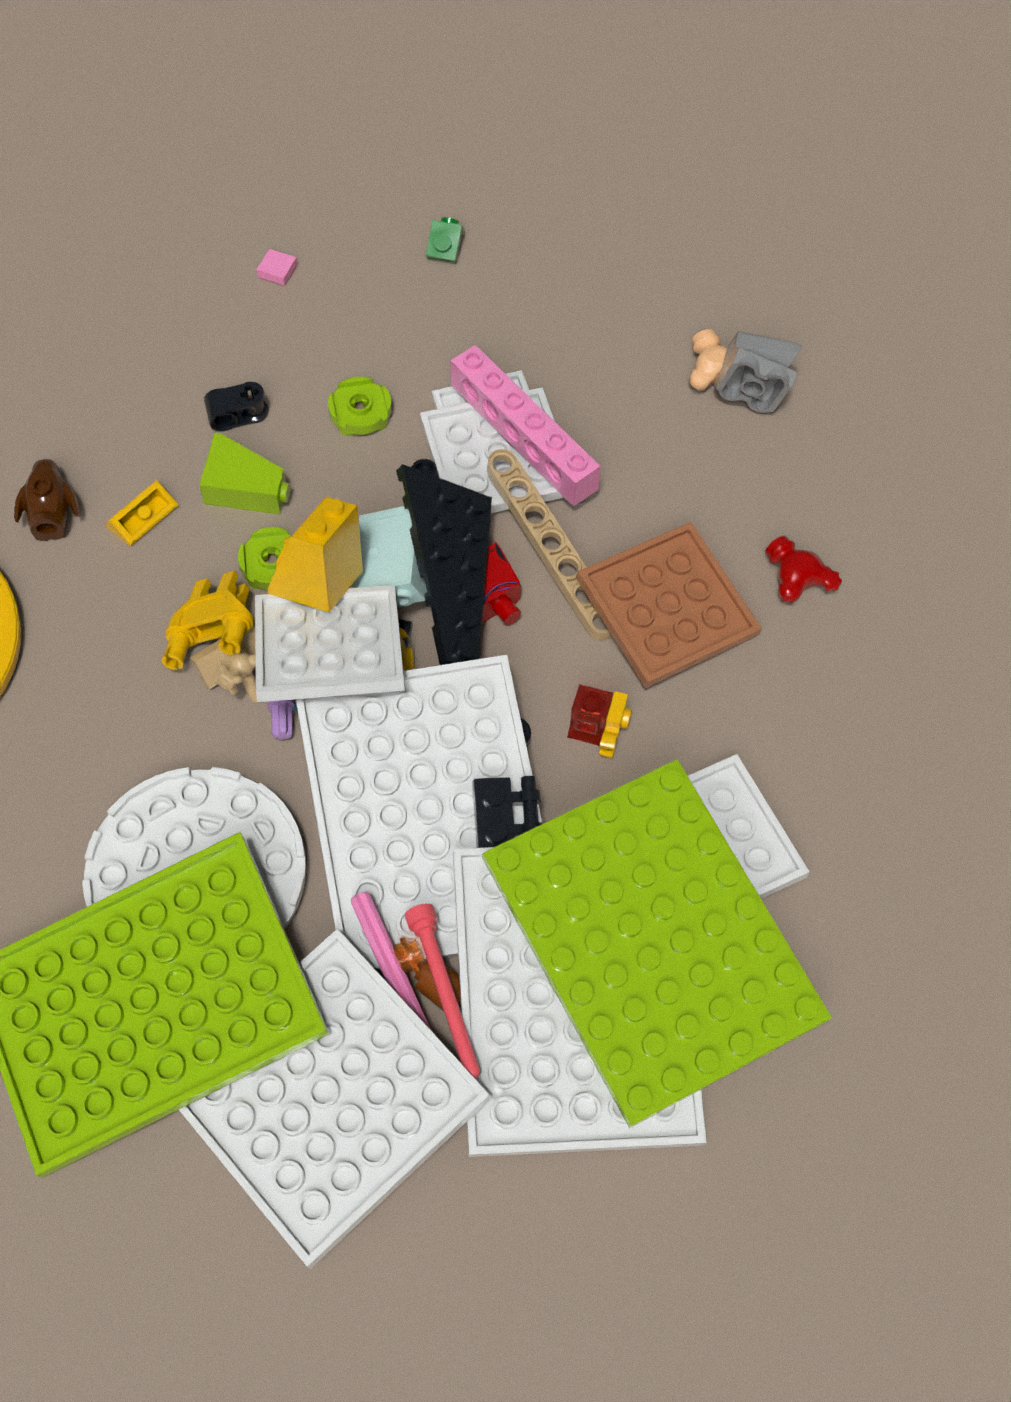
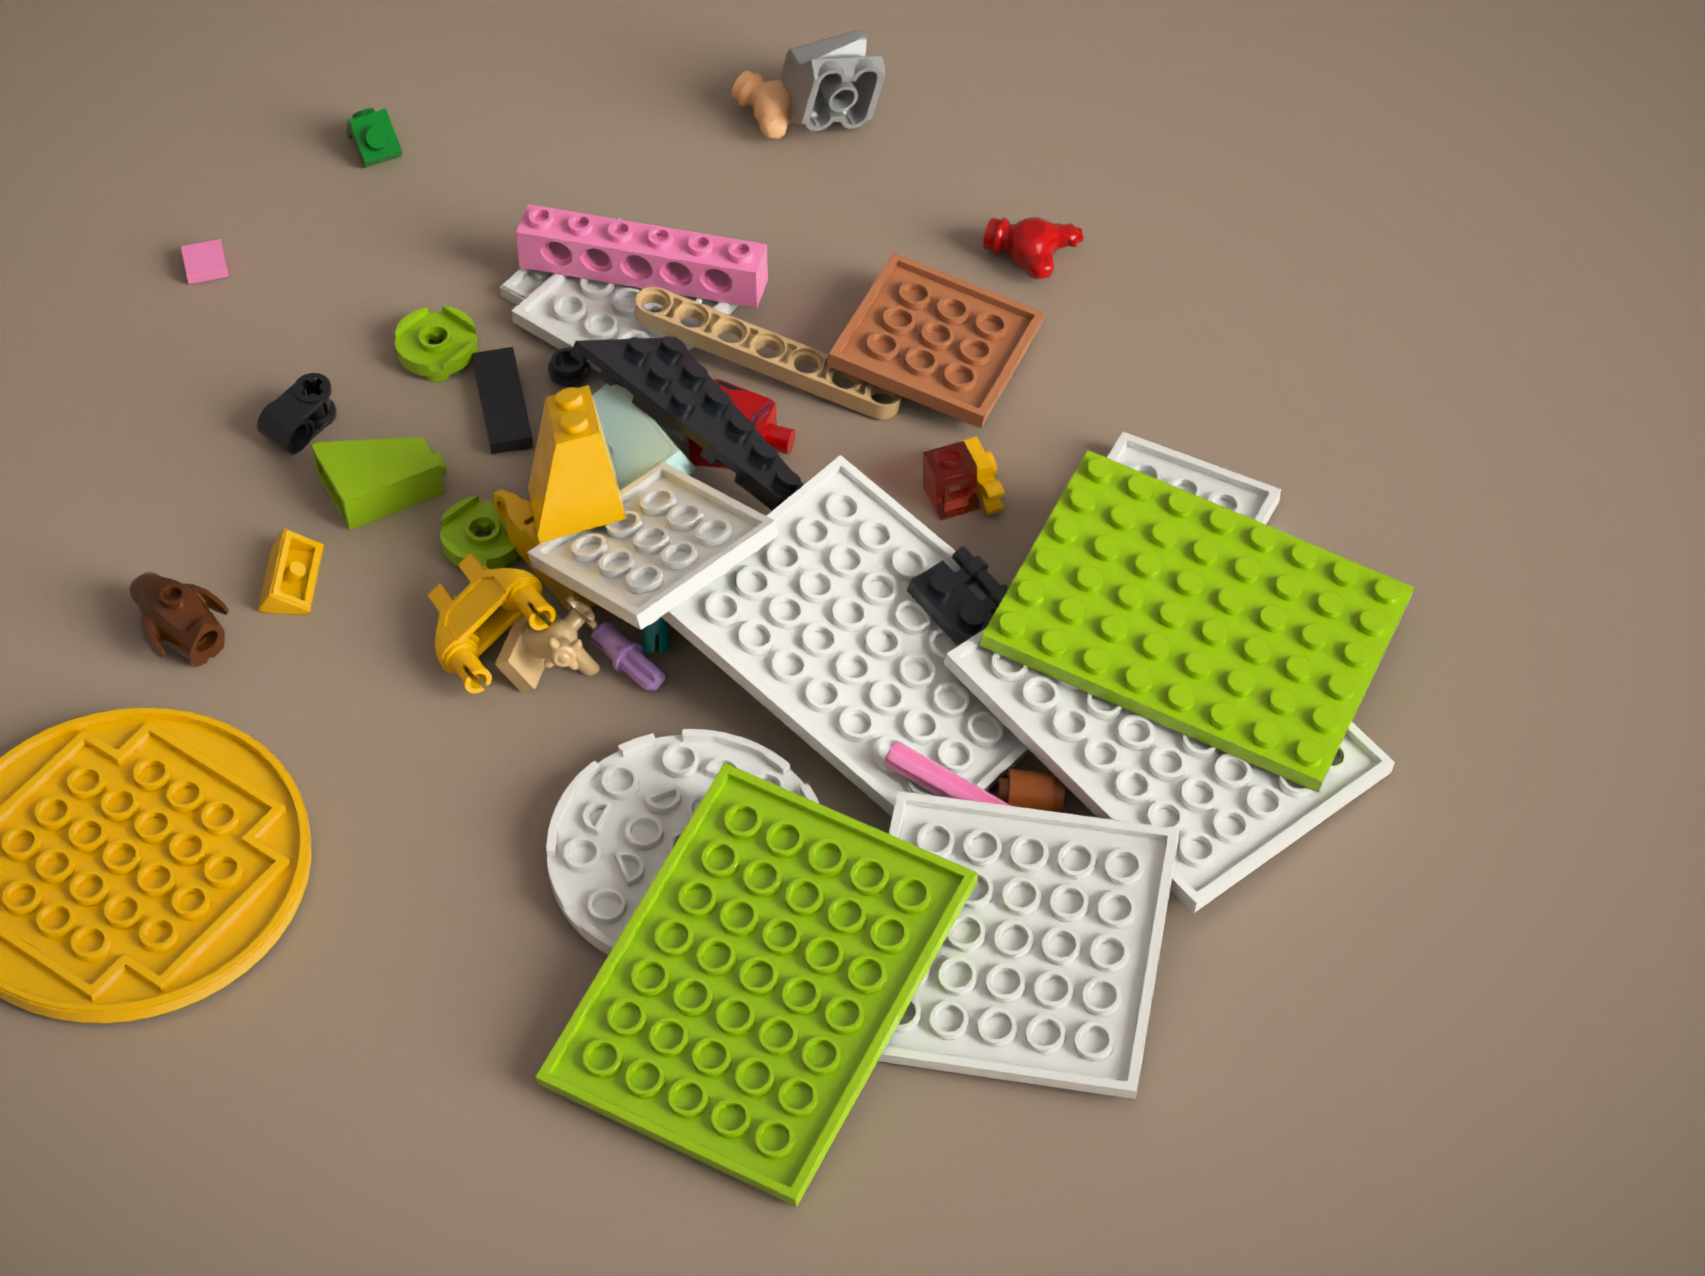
camera: 35 degrees left, 10 degrees down
(367, 468) = (502, 400): none -> black tile
(409, 955) = (985, 773): clear orange plate -> none
(422, 921) = (971, 739): coral piece -> none

